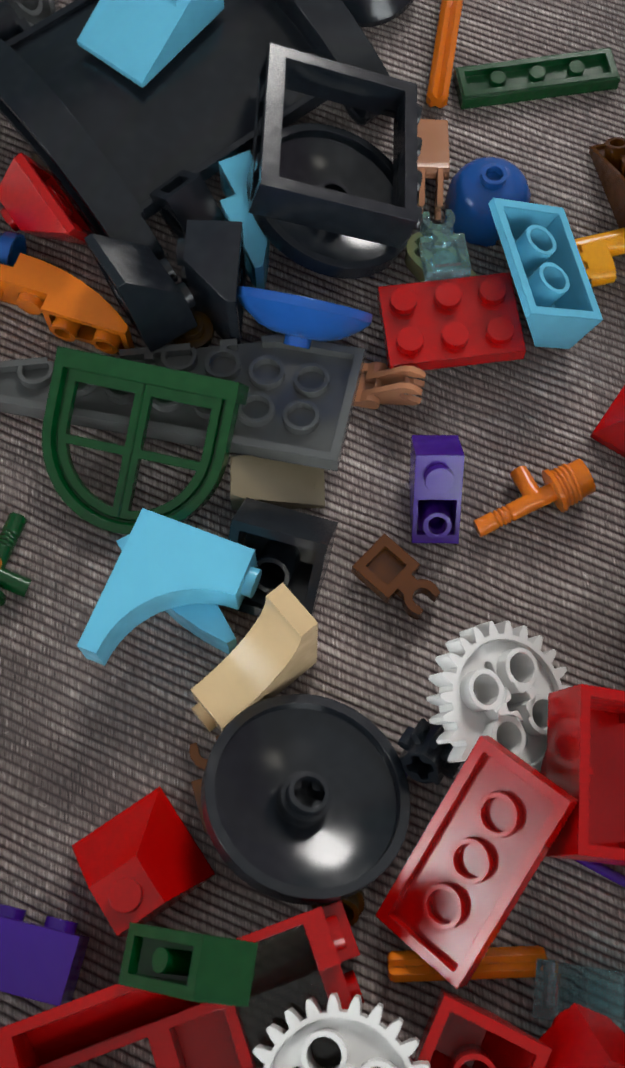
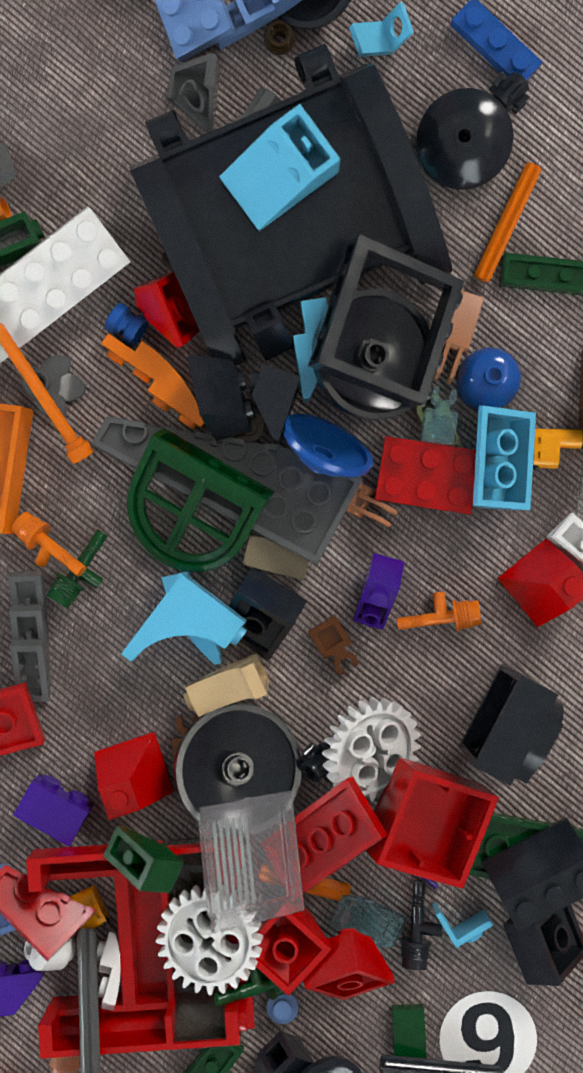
camera: 15 degrees right, 20 degrees up
(368, 925) = (250, 860): none -> clear piece

